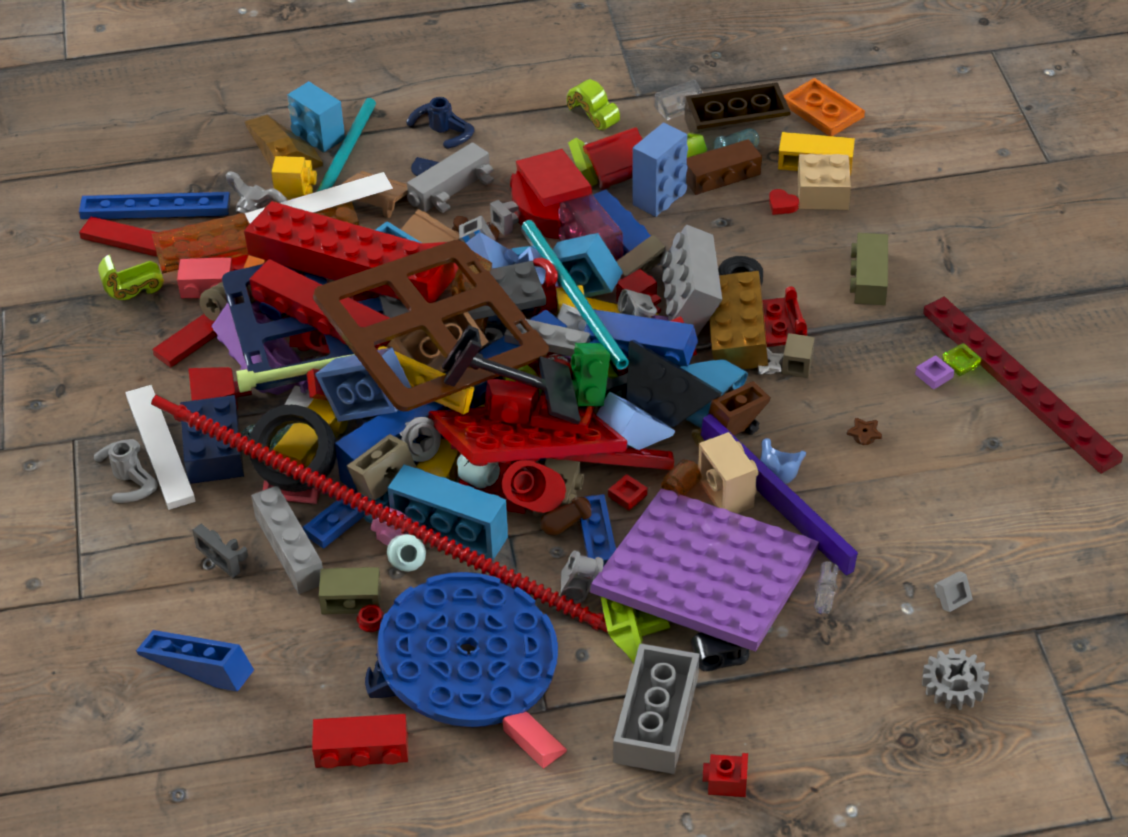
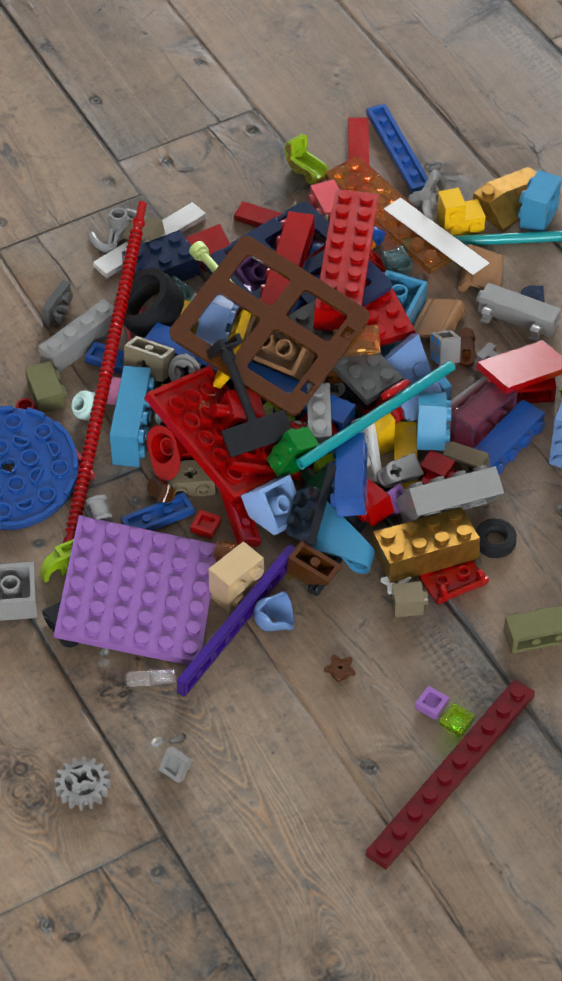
camera: 70 degrees right, 5 degrees up
(156, 436) = (152, 229): none -> dark tan slope

